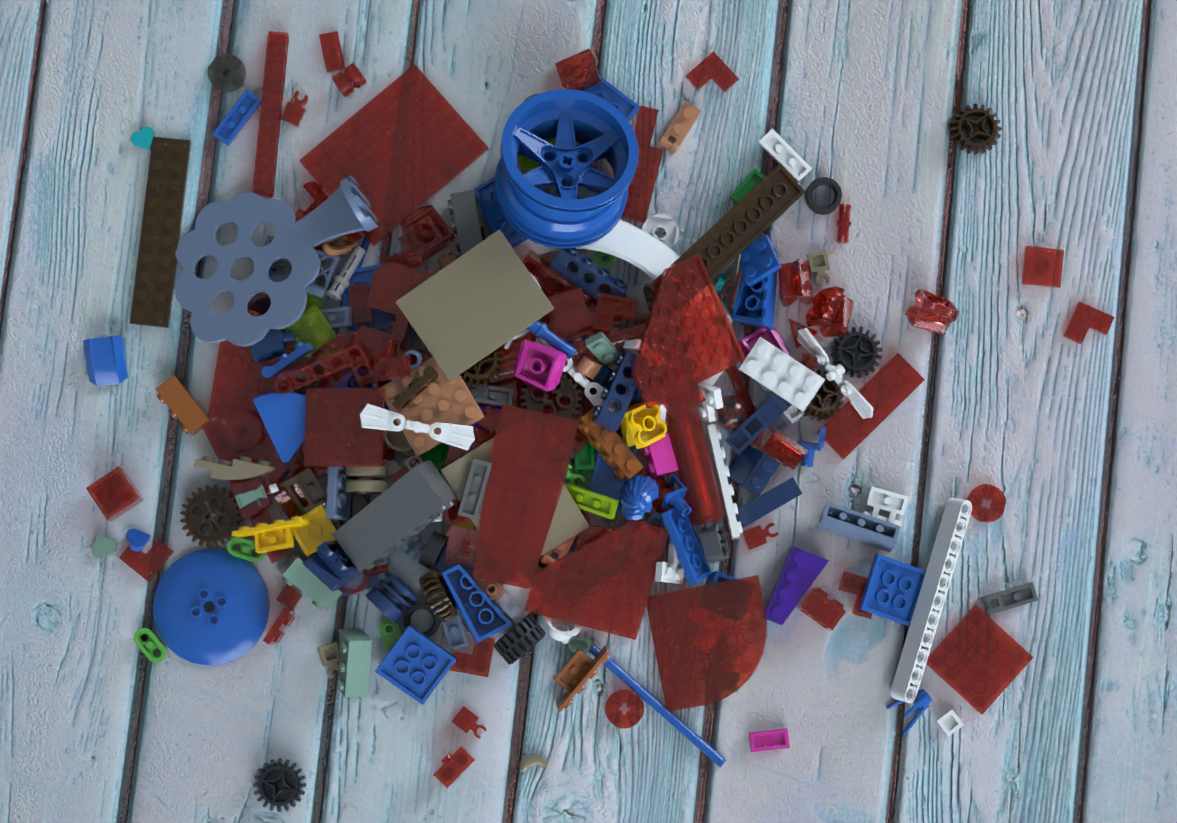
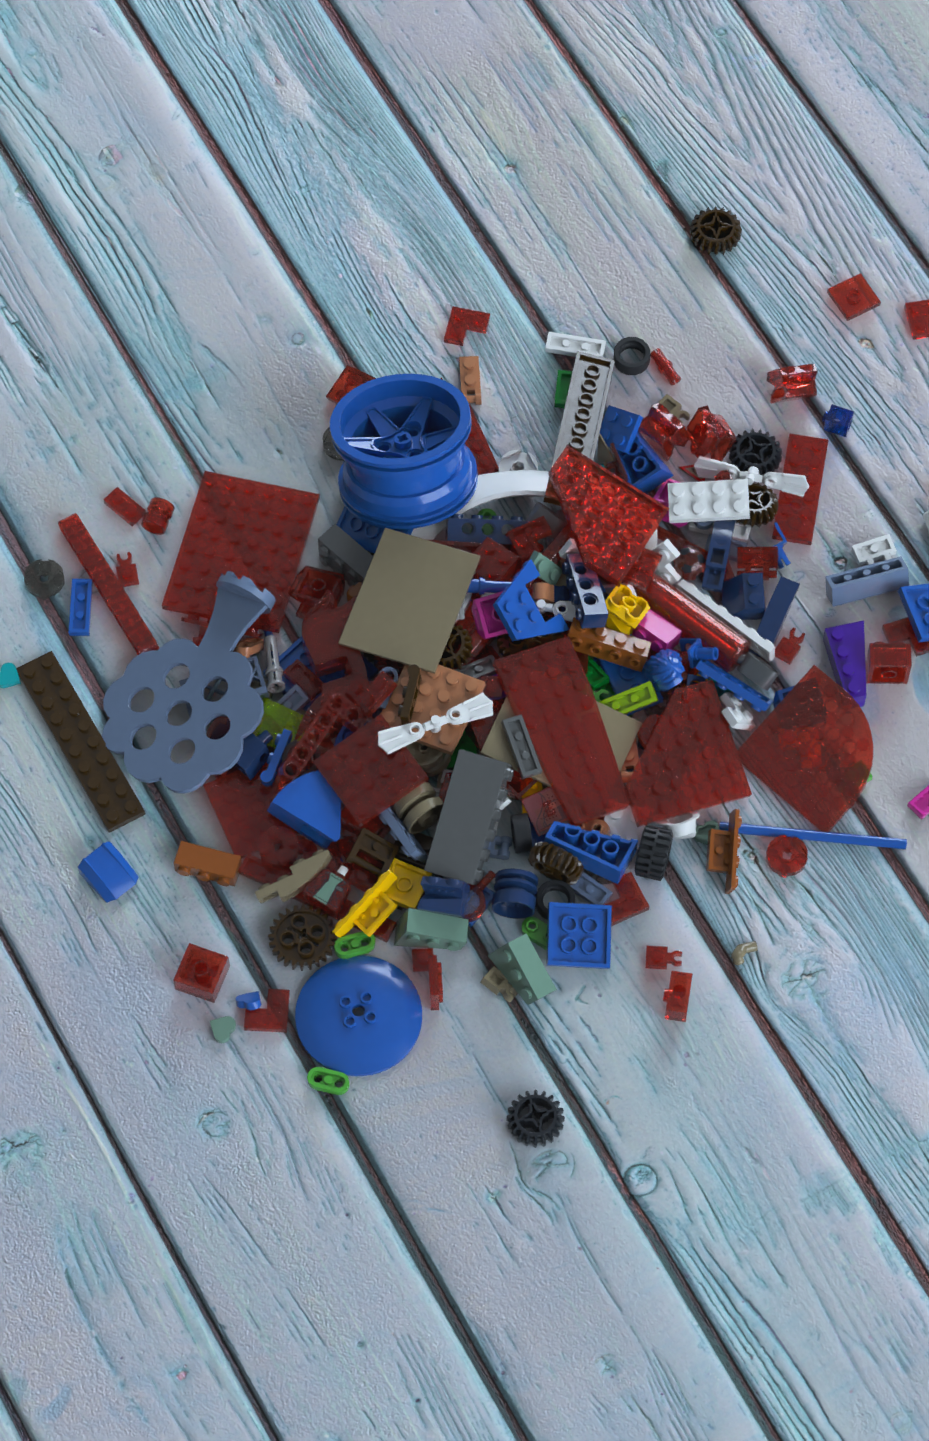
camera: 30 degrees left, 20 degrees down
(550, 378) = (520, 612): none -> blue wing
(953, 369) = (838, 427): none -> clear blue brick

